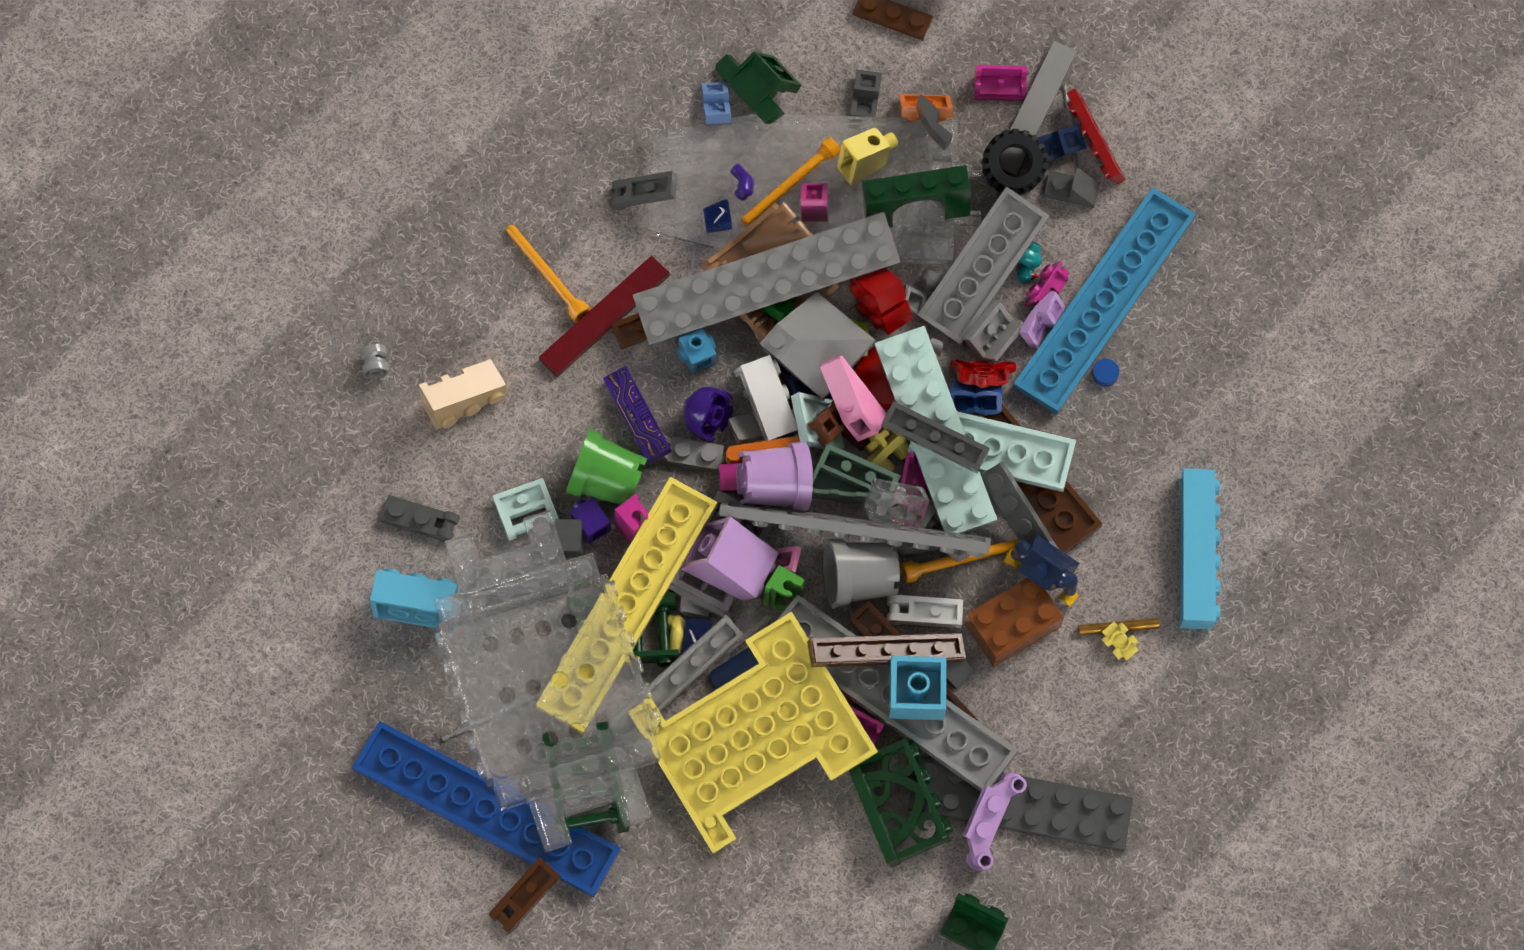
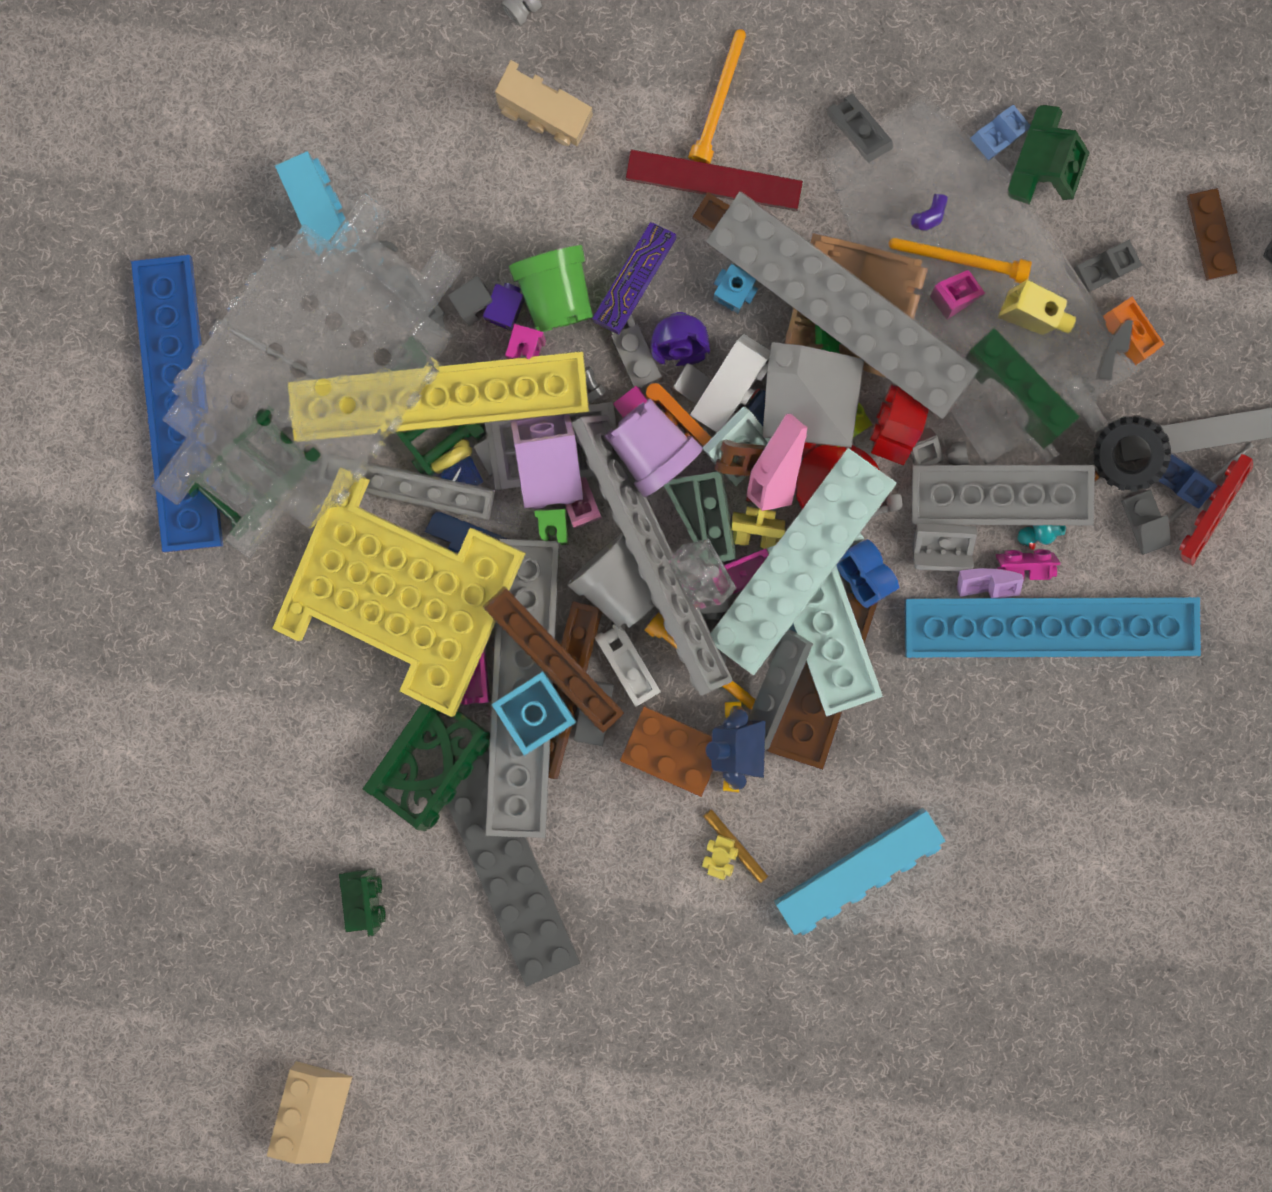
camera: 60 degrees right, 20 degrees up
(418, 518) = (402, 152): dark grey plate -> none
(522, 501) = (482, 234): light aqua plate -> none
(525, 894) = (121, 493): reddish brown plate -> none
(718, 217) = (879, 215): clear blue slope -> none
(935, 437) = (789, 568): dark grey plate -> none
(982, 373) = (892, 565): red tile -> none
(987, 818) = (466, 851): lavender plate -> none
(1000, 82) = (1210, 383): dark pink hinge -> none
(1105, 372) = (979, 674): blue tile -> none

